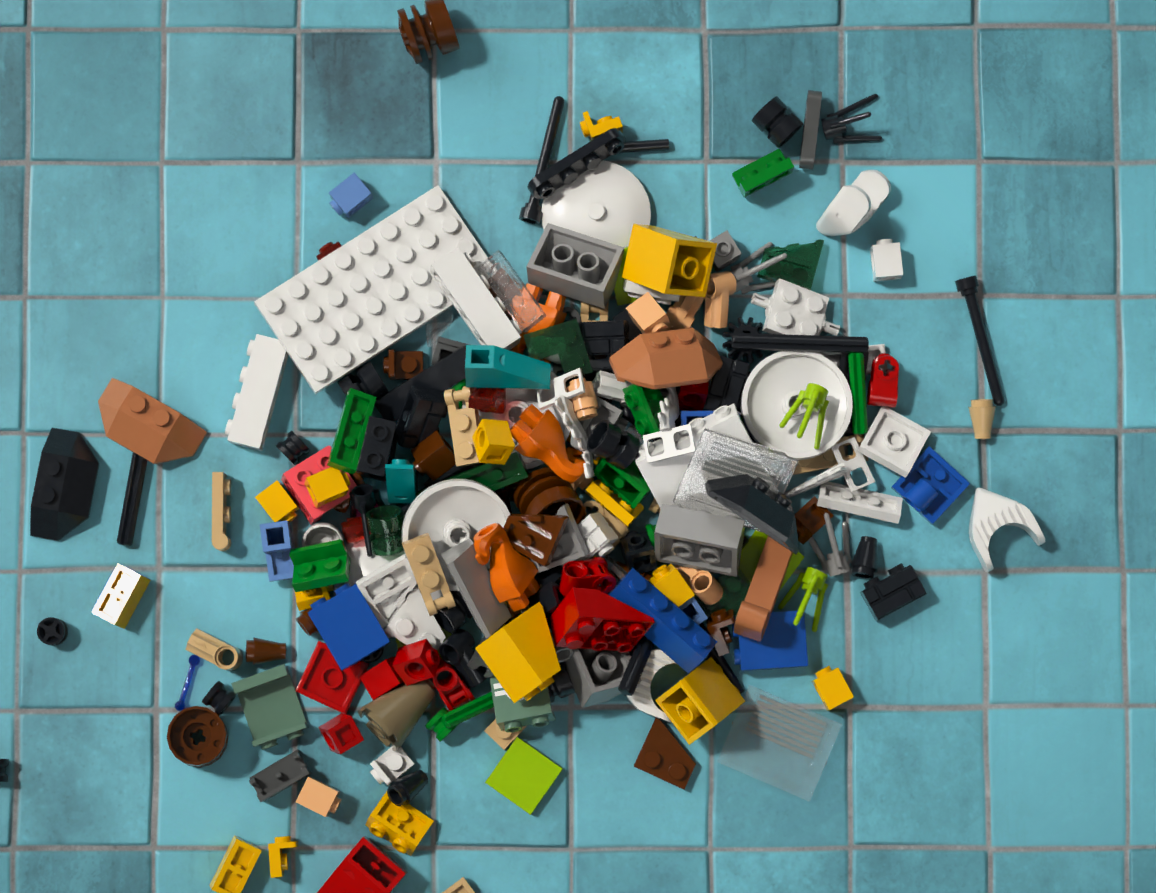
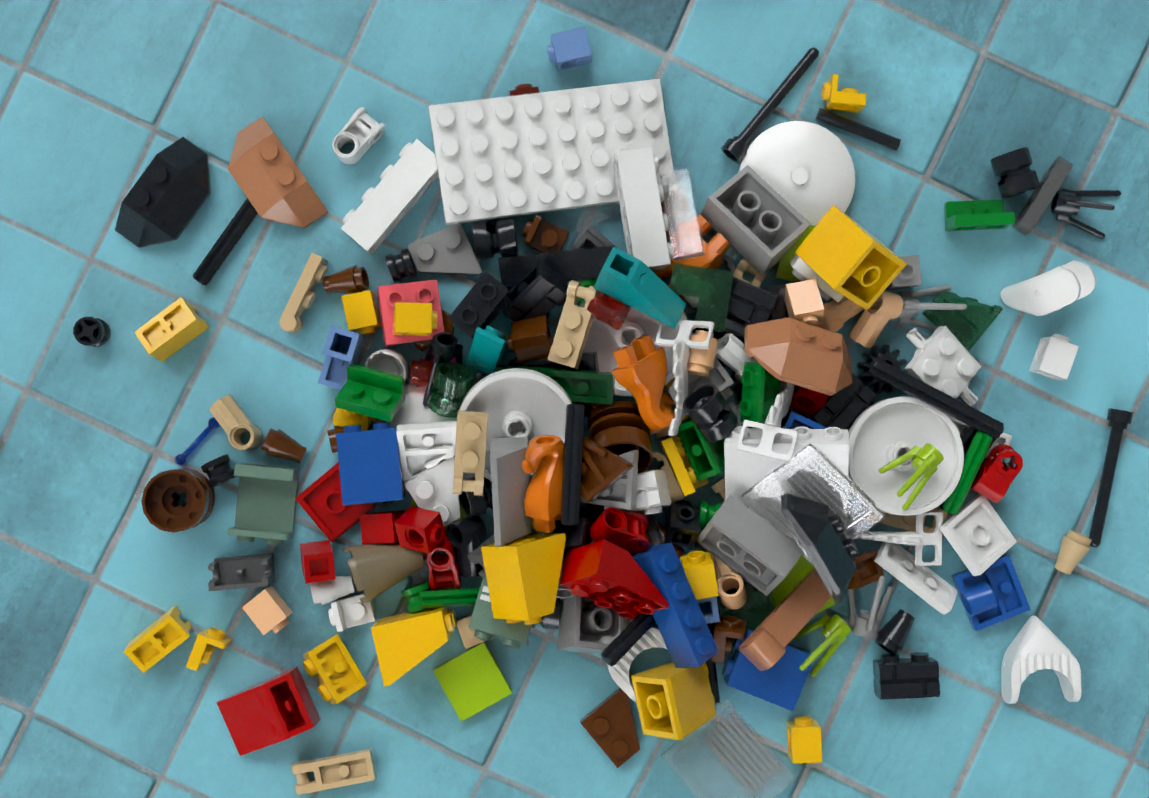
camera: 25 degrees right, 5 degrees up
(204, 350) = (358, 134): none -> white piece
(252, 483) = (347, 281): none -> reddish brown cone
(319, 419) = (445, 252): none -> light grey wing
(351, 431) = (461, 277): green plate -> none
(363, 753) = (331, 590): none -> white cone
(406, 788) = (353, 643): black cone -> none
(453, 759) = (409, 639): none -> yellow slope
(493, 441) = (594, 354): yellow brick -> none
(518, 540) = (572, 464): none -> black axle
(576, 163) = (803, 120): black plate -> none

